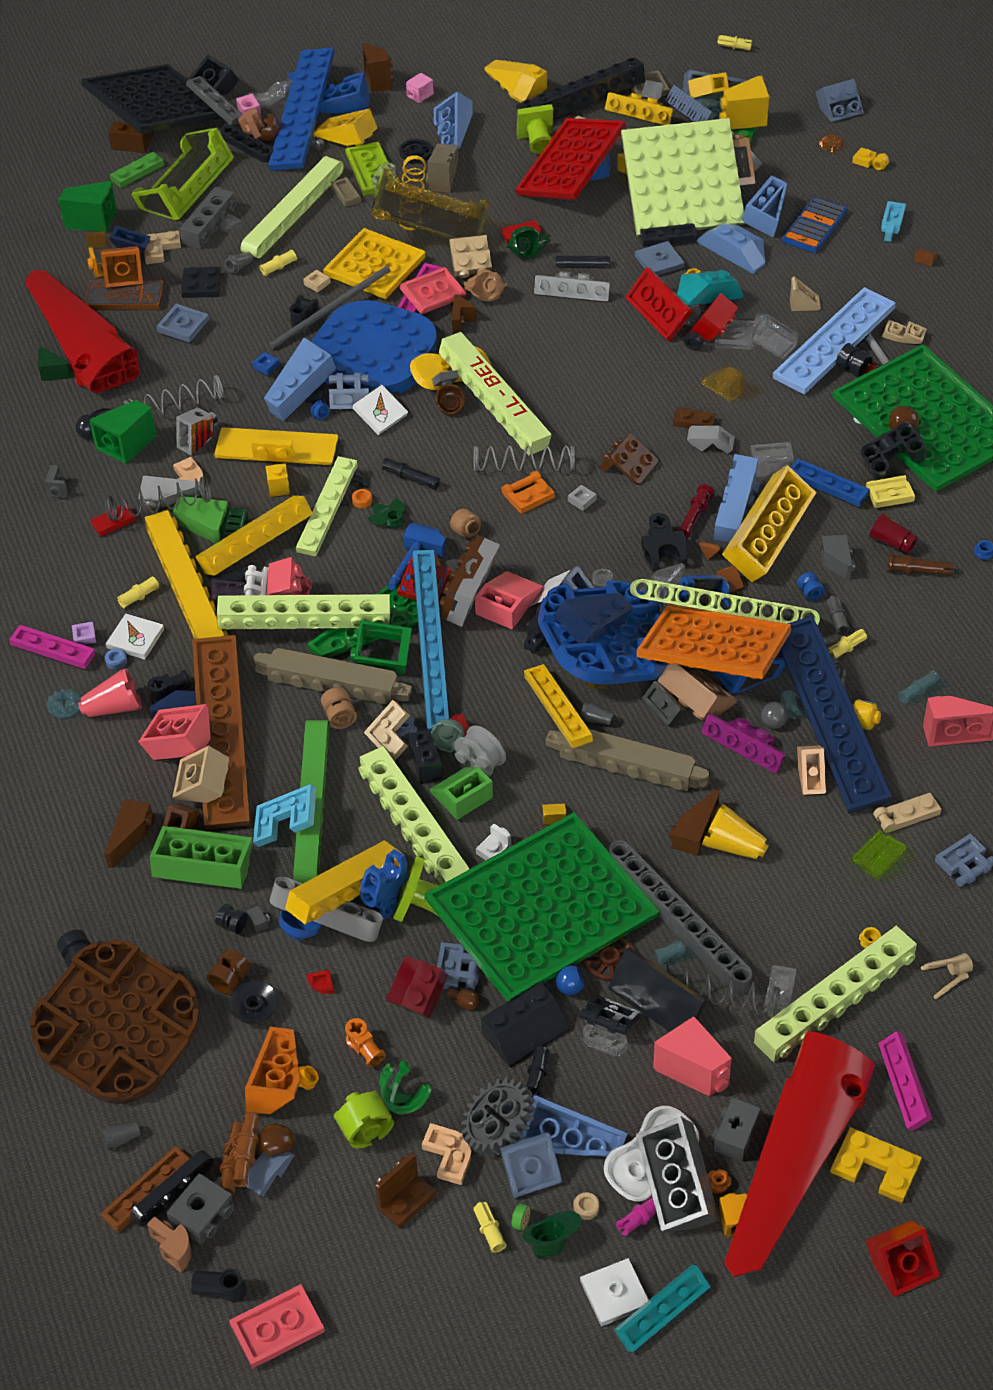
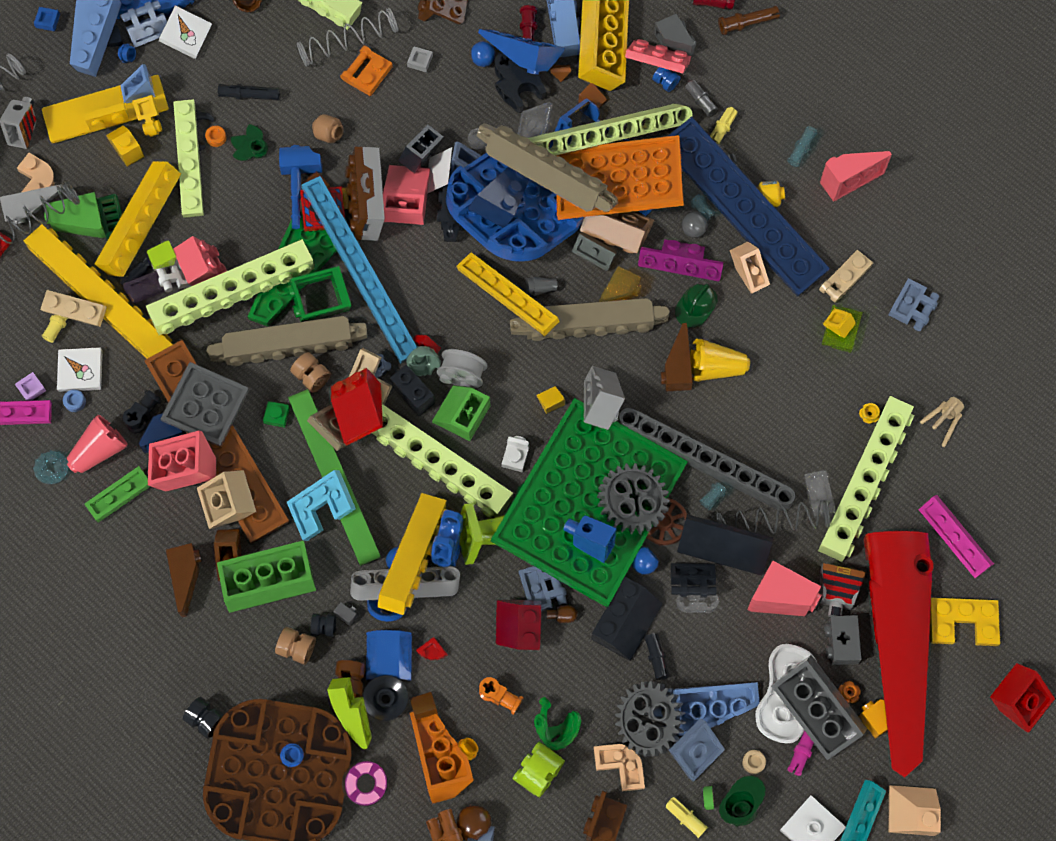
camera: 25 degrees left, 20 degrees up
(108, 744) = (118, 494): none -> bright green plate
(136, 1007) = (291, 755): none -> blue plate
(156, 582) = (73, 308): none -> tan plate
(192, 1066) = (364, 783): none -> tile
(195, 925) = (295, 645): none -> medium nougat wheel
(212, 994) = (350, 711): none -> lime slope
(227, 690) = (205, 403): none -> dark grey plate
(257, 567) = (162, 255): none -> lime slope
(280, 966) = (389, 654): none -> blue slope
(286, 1024) = (423, 705): none -> reddish brown tile
(289, 733) = (276, 414): none -> green plate
(309, 455) = (147, 109): none -> yellow plate
(315, 435) = (137, 85): none -> medium blue slope
(336, 757) = (327, 425): none -> dark tan tile
(364, 742) = (357, 405): none -> red slope
(524, 928) = (592, 537): none -> blue torso
(541, 563) = (421, 148): none -> black brick
(562, 909) = (652, 496): none -> dark grey gear
(599, 820) = (602, 397): none -> light grey wedge
(642, 510) = (483, 54): none -> blue piece
(643, 603) = (546, 168): none -> dark tan hinge
(674, 738) = (621, 286): none -> clear yellow slope
(681, 517) = (524, 51): none -> blue wedge
(729, 1320) = (914, 811): none -> light nougat slope
(742, 784) = (696, 305): none -> dark green piece
(758, 1079) = (839, 587): none -> torso
(811, 564) = (658, 56): none -> coral plate
(878, 846) = (840, 322): none -> yellow slope

